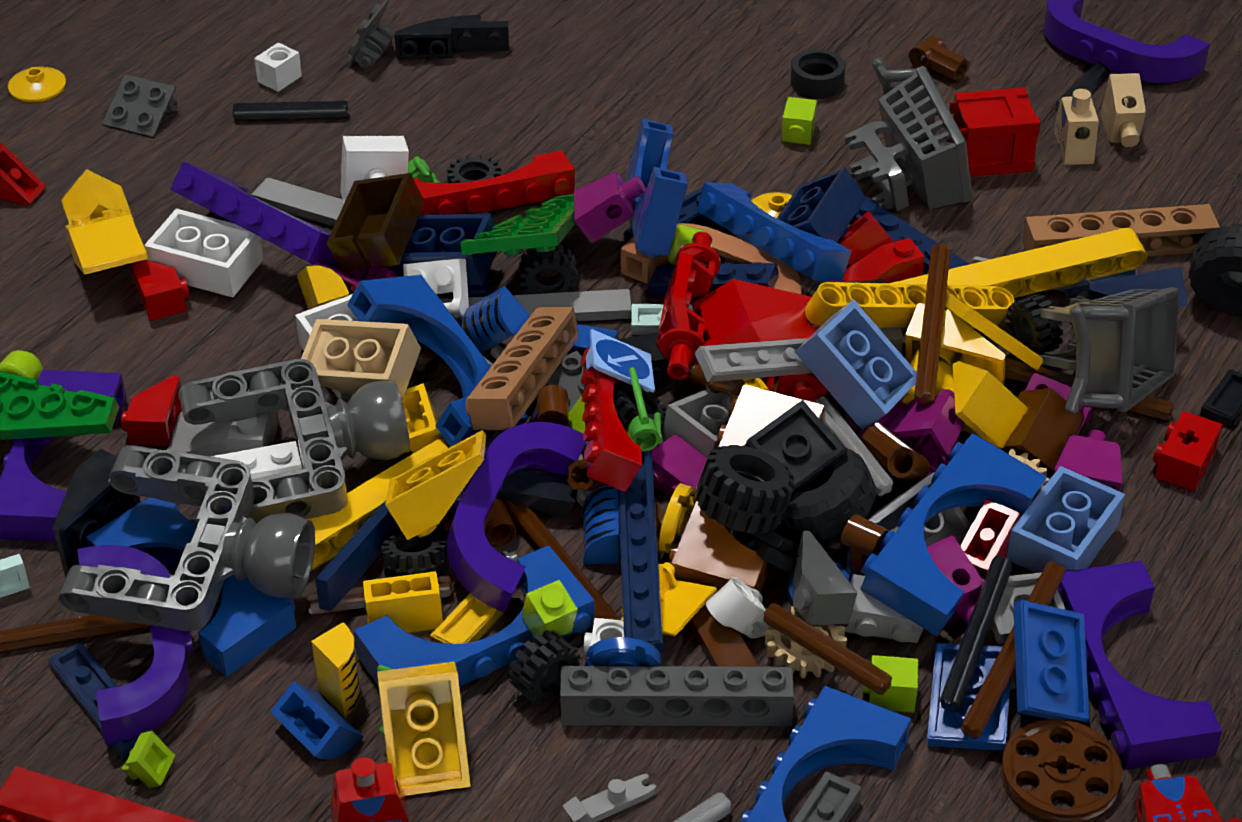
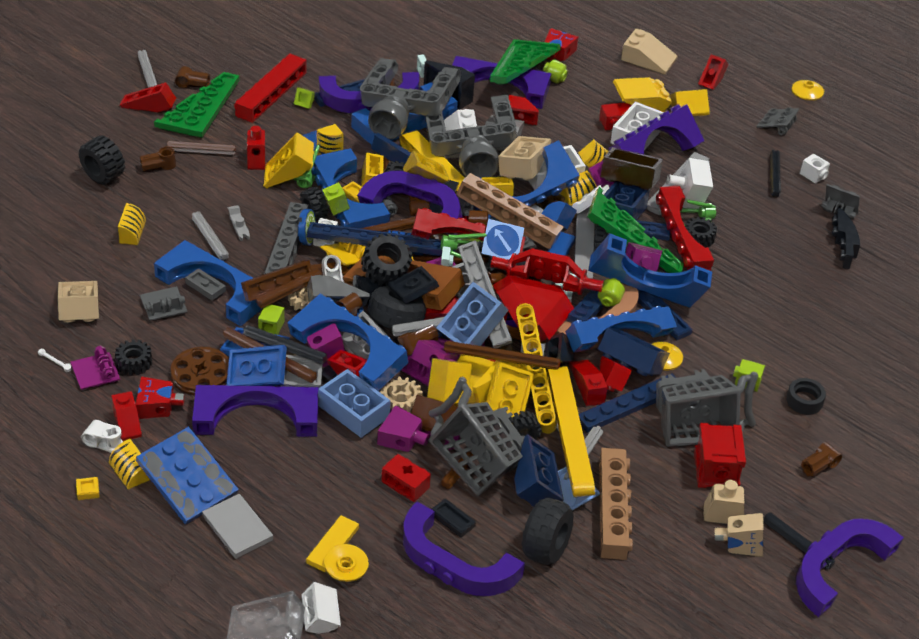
camera: 95 degrees right, 0 degrees up
(681, 438) = (447, 259): none -> light aqua plate
(828, 675) = (265, 283): none -> reddish brown plate

